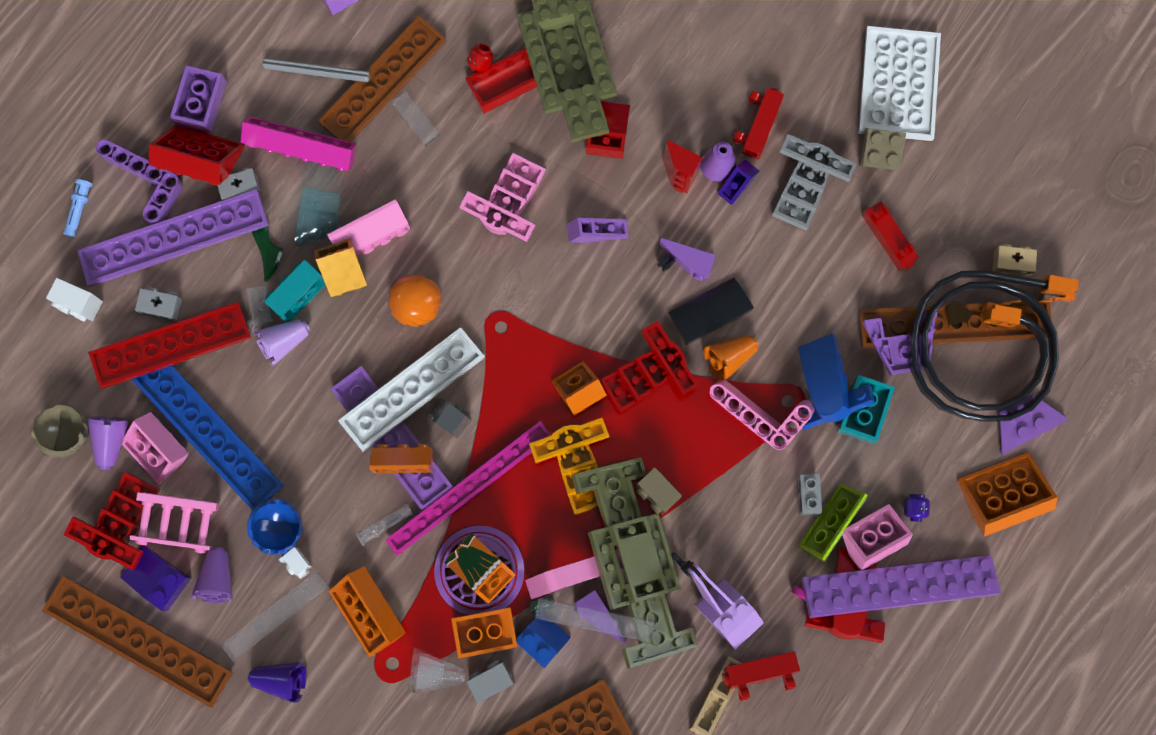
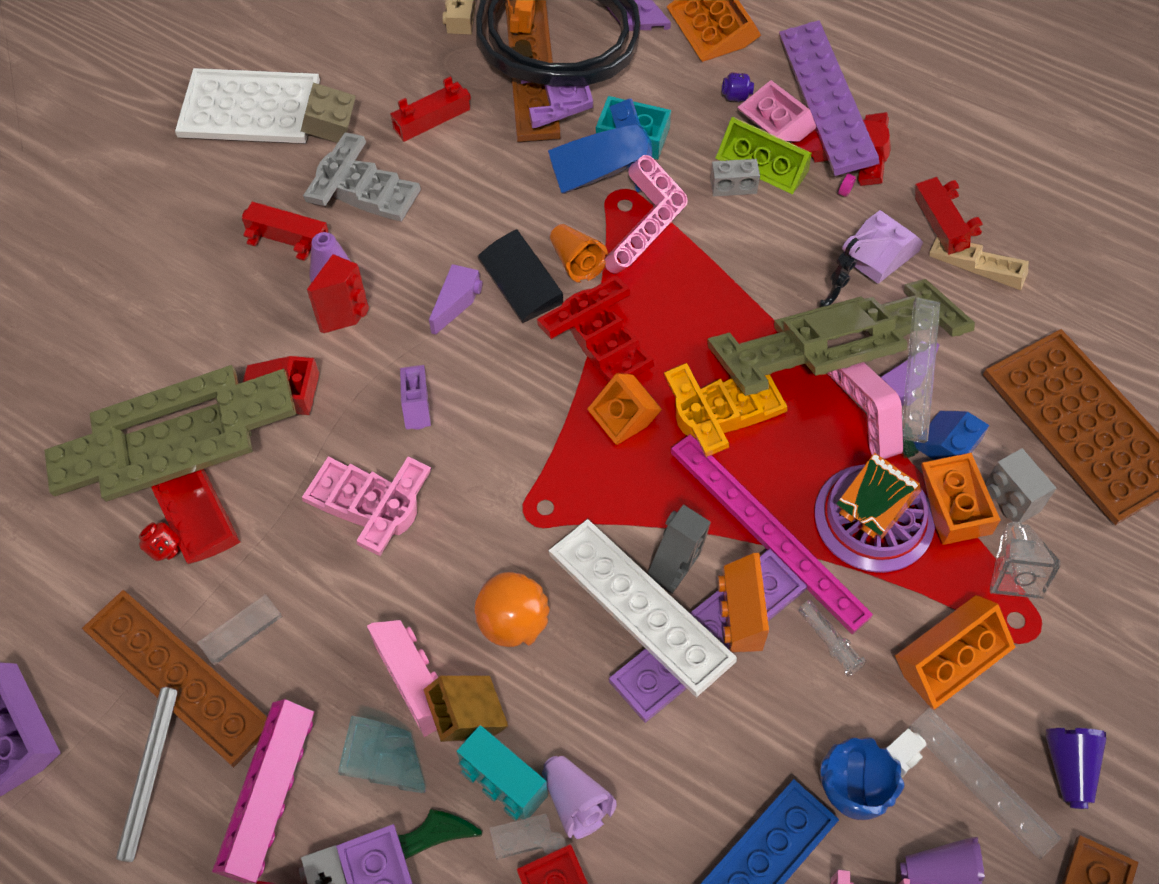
camera: 90 degrees left, 20 degrees down
(658, 491) = (751, 311): dark tan brick -> none
(666, 263) = (459, 320): black bush -> none
(738, 182) = (360, 249): dark purple slope -> none

